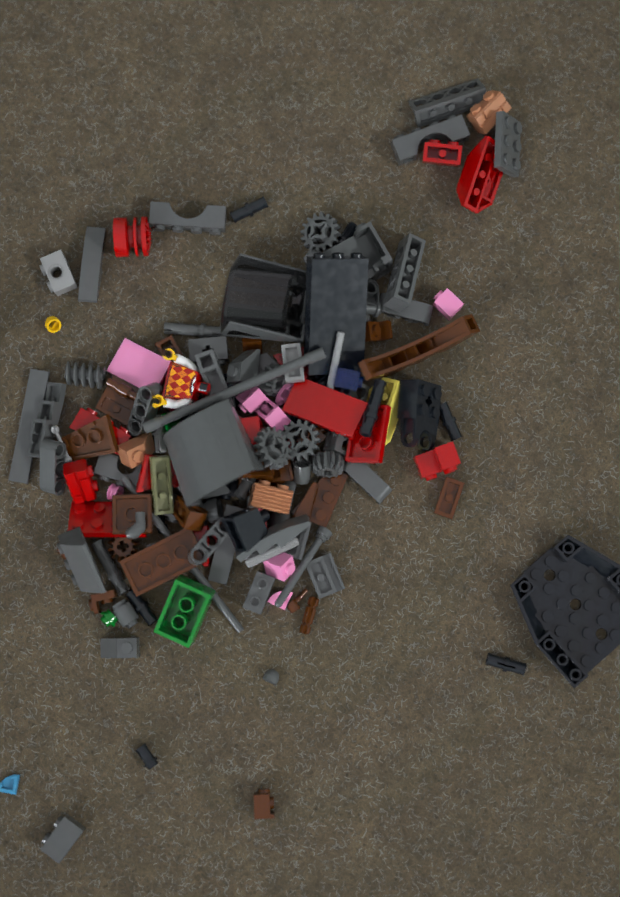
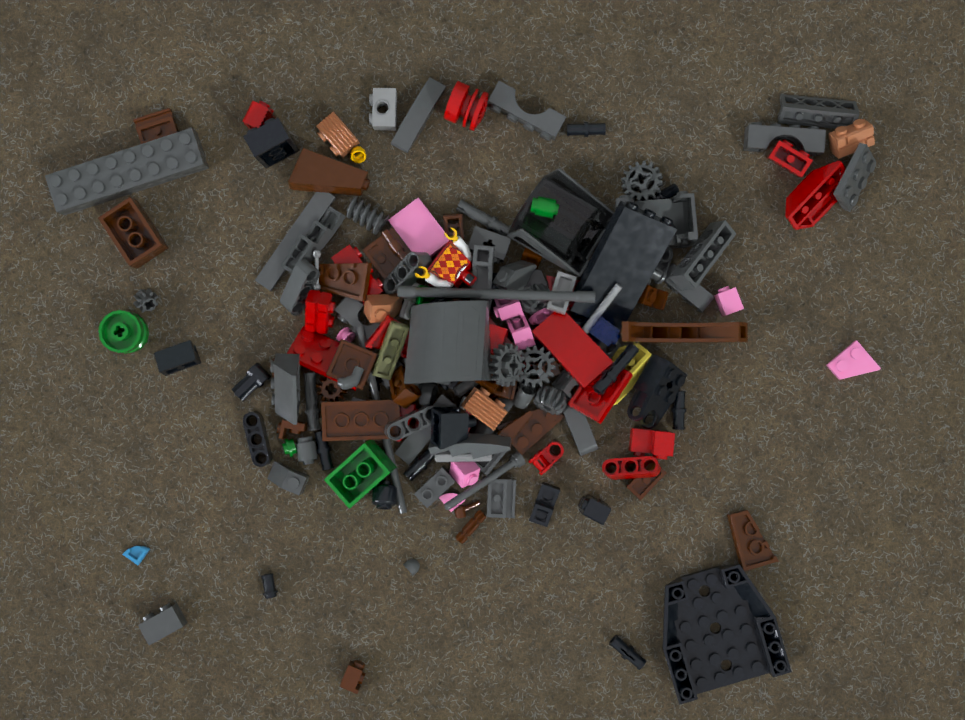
camera: 25 degrees right, 5 degrees up
(26, 315) = (337, 135): none -> nougat brick
(32, 355) = (323, 174): none -> reddish brown slope
(48, 570) = (254, 379): none -> black piece
(67, 619) = (251, 431): none -> black beam
(216, 622) = (384, 495): none -> black head
(236, 579) = (419, 464): none -> black pin
(243, 294) = (544, 207): none -> green brick
(348, 519) = (546, 457): none -> red piece
(367, 563) = (544, 504): none -> black slope
(413, 545) = (594, 509): none -> black brick
(420, 492) = (622, 464): none -> red beam
(570, 513) = (748, 541): none -> reddish brown wing
(584, 308) = (852, 362): none -> bright pink wing

